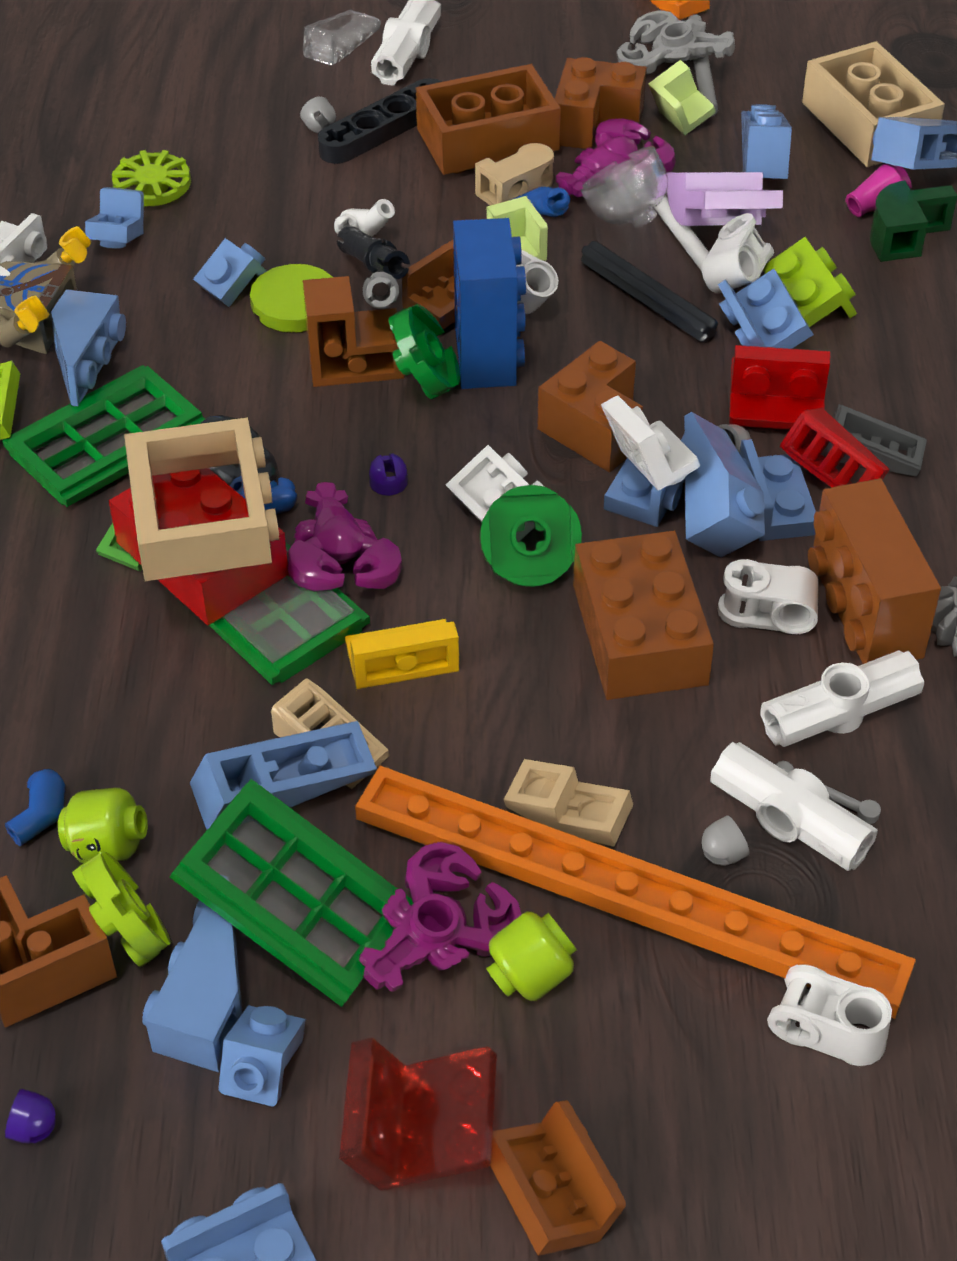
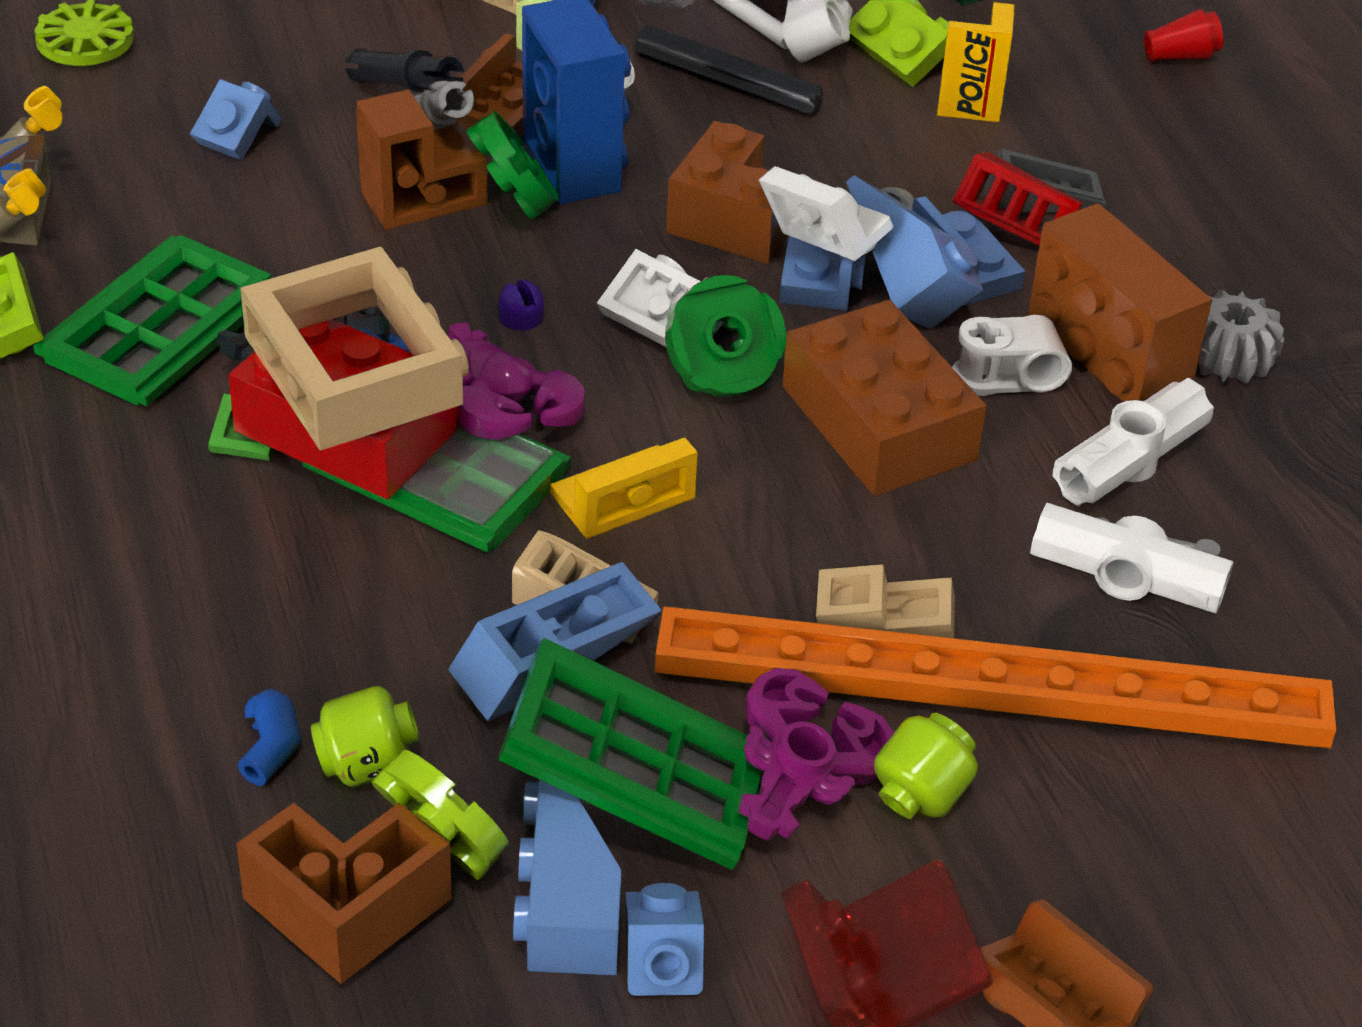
camera: 20 degrees left, 5 degrees down
(84, 336) = (90, 216): medium blue slope -> none
(118, 219) = (70, 75): medium blue bracket -> none
(279, 296) = (315, 137): lime tile -> none
(366, 220) = (379, 38): white arm -> none
(724, 842) = (1076, 609): light grey hinge -> none
(765, 313) = (874, 73): medium blue bracket -> none
(776, 385) = (920, 140): red bracket -> none
(828, 1016) = (1275, 758): white piece -> none
(853, 324) = (976, 66): none -> yellow panel

